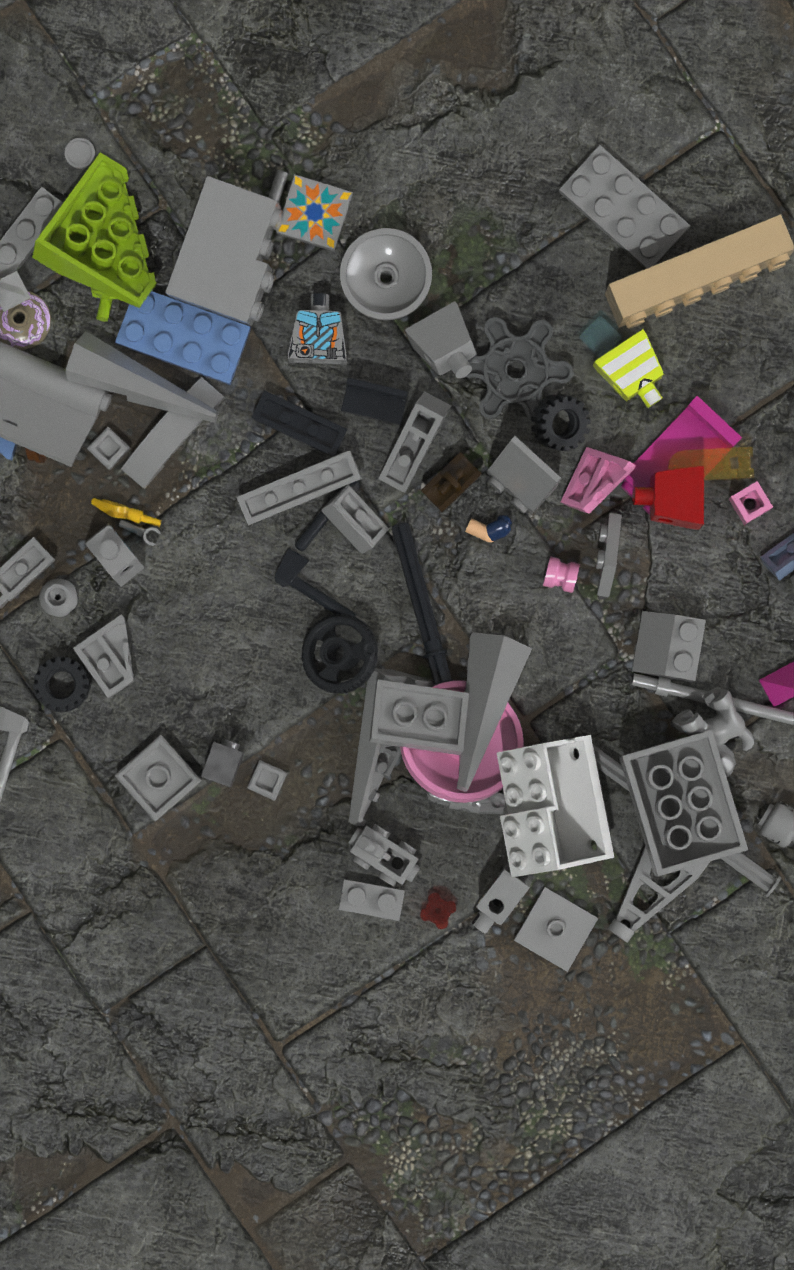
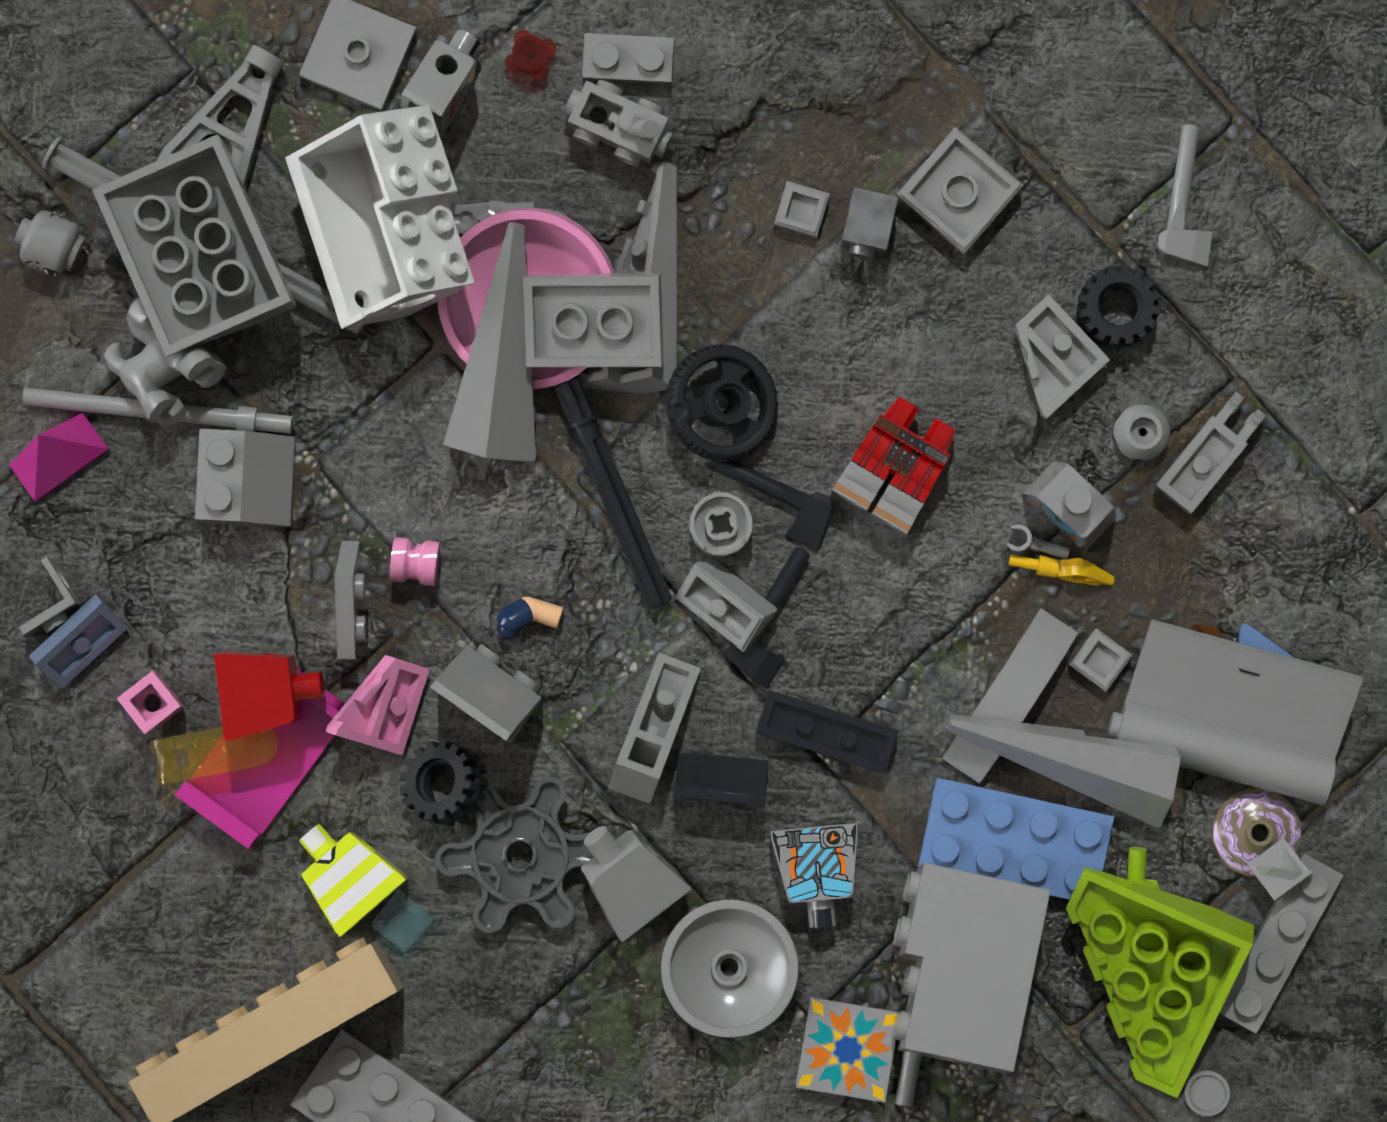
camera: 165 degrees right, 0 degrees up
(223, 603) = (902, 454): none -> hips
(299, 487) = (813, 637): light grey plate -> none
(351, 572) = (721, 524): none -> light grey wheel
(451, 482) = (592, 673): dark brown hips -> none

